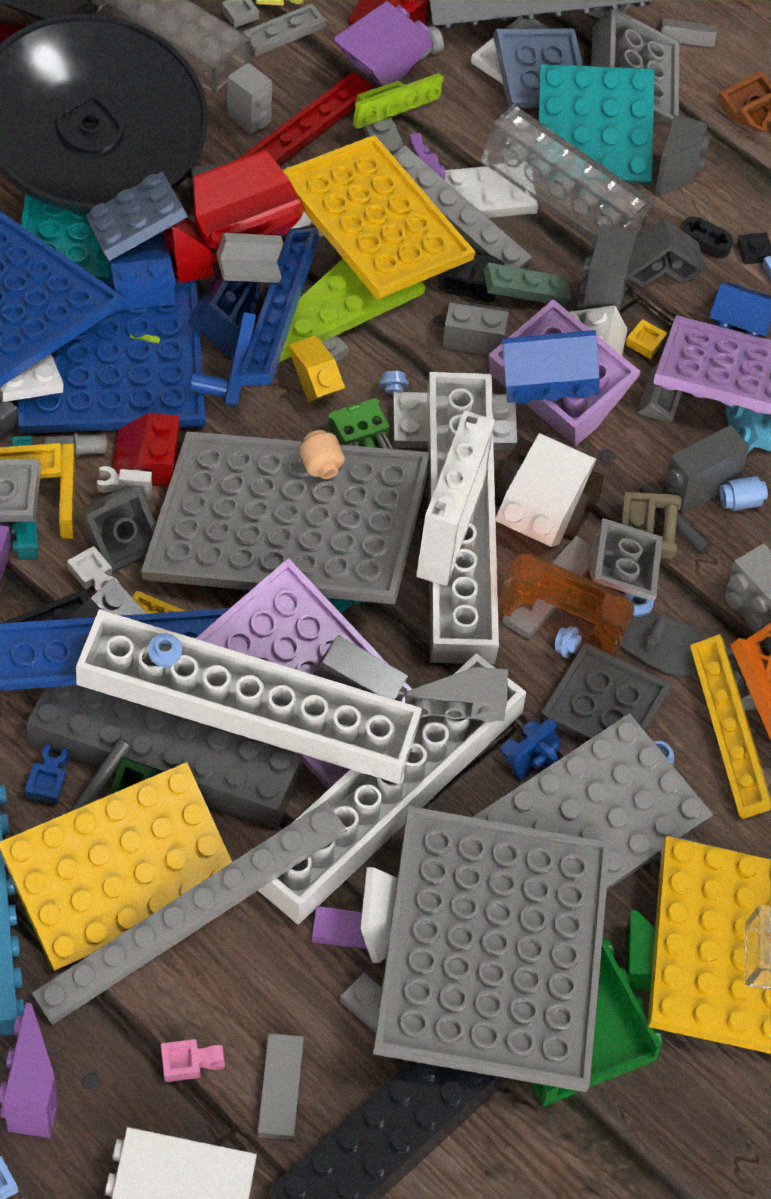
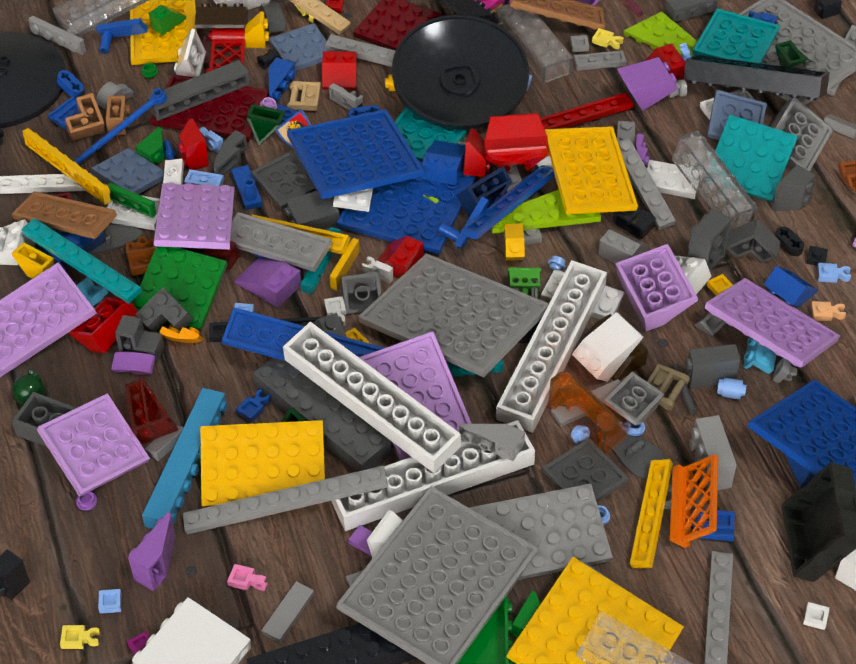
camera: 30 degrees right, 5 degrees down
(82, 444) = (366, 243): light grey axle -> none
(103, 774) = (282, 410): dark grey bar -> none
(135, 215) = (453, 130): sand blue plate -> none
(163, 658) = (332, 358): light blue plate -> none
(249, 98) = (556, 89): light grey brick -> none
(250, 257) = (504, 170): light grey panel -> none
(321, 454) = (486, 285): light nougat head -> none
(360, 669) = (438, 402): brick -> none
(395, 99) = (640, 113): lime bracket -> none
(455, 497) = (522, 356): white window -> none
(526, 284) = (663, 234): sand green plate -> none
(535, 750) = (527, 485): blue hips -> none
(551, 366) = (642, 278): slope -> none

